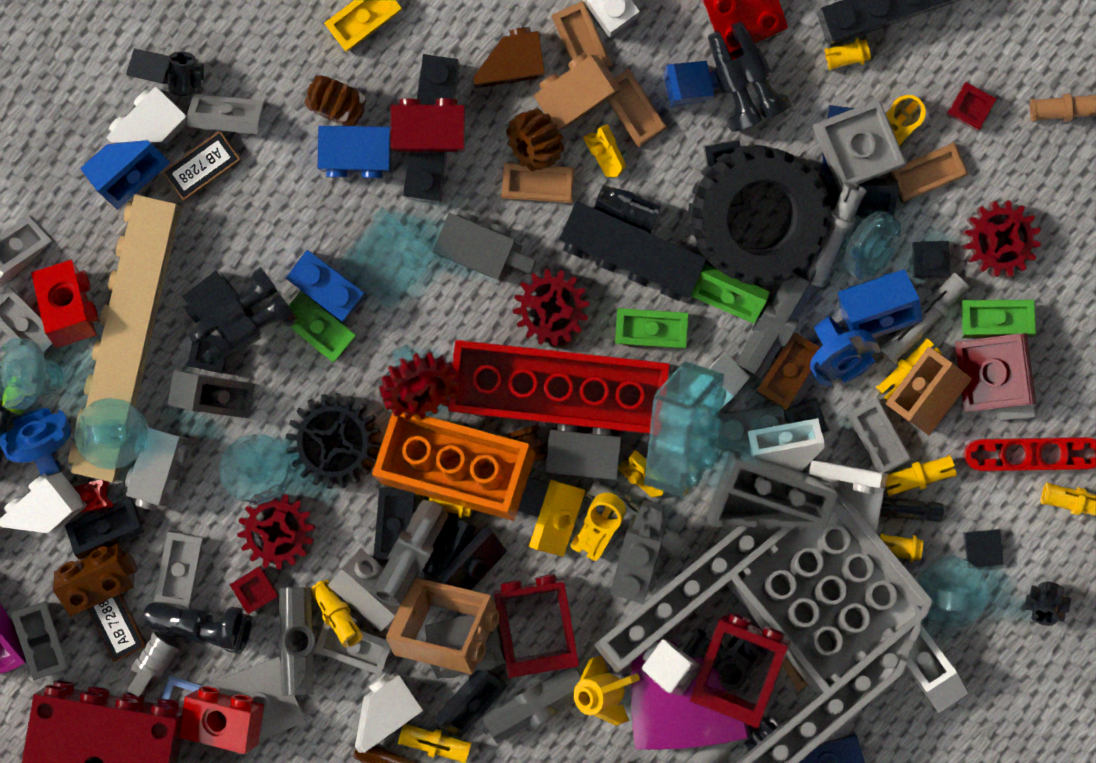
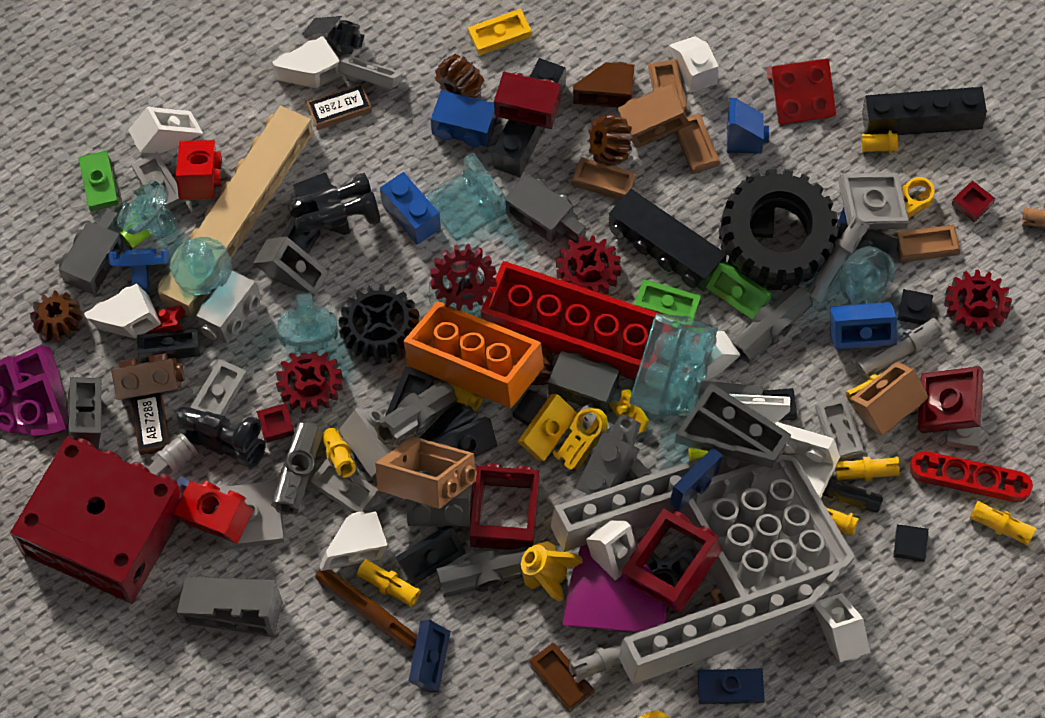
camera: 15 degrees right, 25 degrees down
(123, 169) = (279, 88): blue slope -> none
(320, 327) = (394, 239): bright green plate -> none
(606, 152) = (665, 167): yellow piece -> none
(628, 207) = (673, 206): black hinge -> none
(738, 69) = (796, 128): black piece -> none
(745, 567) = (696, 479): none -> dark blue plate
(788, 371) = (775, 361): reddish brown plate -> none
(842, 353) = (823, 354): blue tile -> none
(956, 591) = (876, 570): clear light blue tile -> none
(997, 318) = (951, 356): bright green plate -> none
(1047, 603) = (962, 588): black gear -> none

